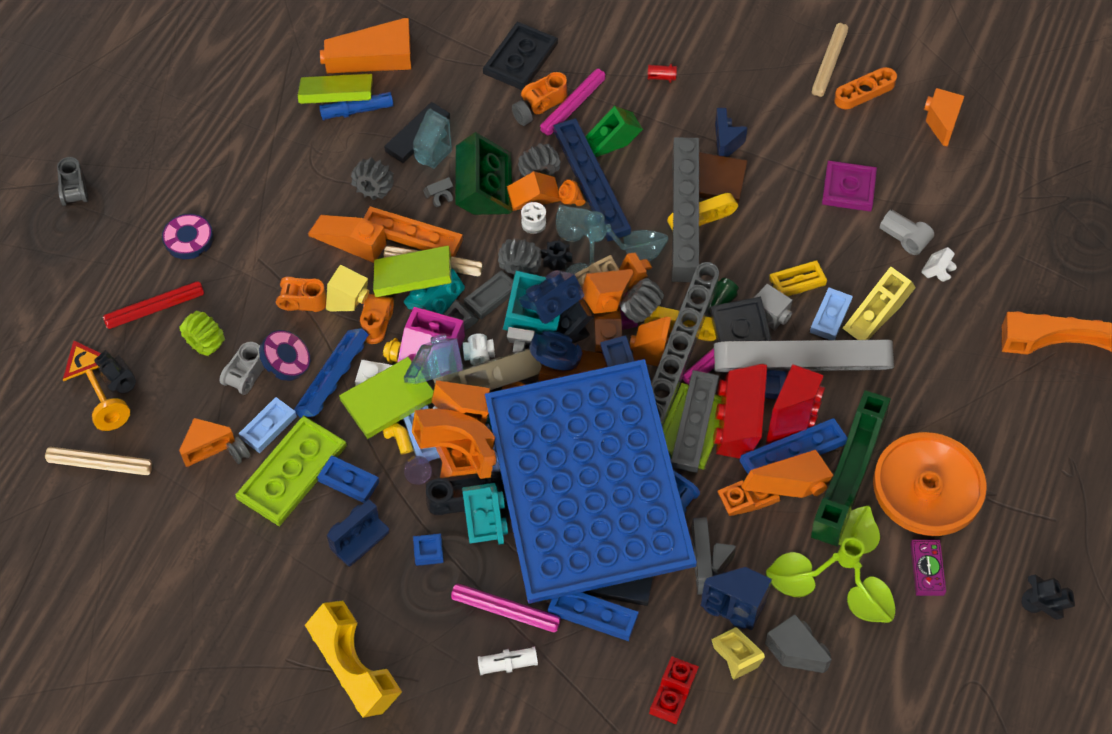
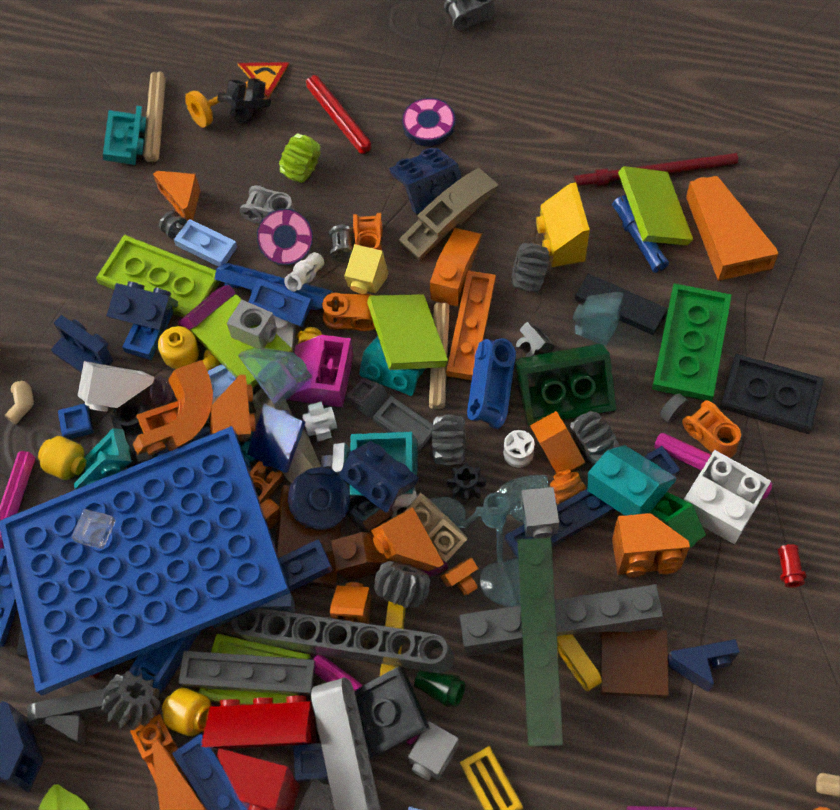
camera: 85 degrees right, 5 degrees up
(118, 483) = (122, 136): none -> teal bracket
(249, 239) = (426, 176): none -> dark blue bracket
(291, 119) = (603, 176): none -> dark red bar
(299, 229) = (447, 211): none -> dark tan slope
(301, 315) = (341, 242): none -> dark grey bush
(328, 342) = (304, 272): none -> white pin
(330, 475) = (141, 307): none -> dark blue bracket
(338, 146) = (564, 227): none -> yellow slope
(343, 424) = (206, 307): none -> magenta tile
(357, 361) = (281, 302): none -> blue plate
(378, 450) = (178, 347): none -> yellow head
(382, 386) = (247, 316): none -> light grey brick
(397, 592) = (23, 401): none -> tan arm
(410, 502) = (110, 385): none -> white slope
(465, 92) = (692, 342): none -> green plate
(468, 554) = (62, 457): none -> yellow head
(472, 222) = (491, 382): none -> blue piece
(495, 369) = (276, 438): none -> clear blue piece
(558, 509) = (93, 528): none -> clear tile
(586, 144) = (628, 481): none -> teal slope
(600, 200) = (539, 512): none -> light grey brick
(601, 91) = (726, 496): none -> white slope
(636, 144) = (647, 545): none -> orange slope
(658, 204) = (540, 642): none -> dark green arch
(709, 499) = (130, 700): none -> dark grey gear
(718, 470) = (186, 711): none -> yellow head

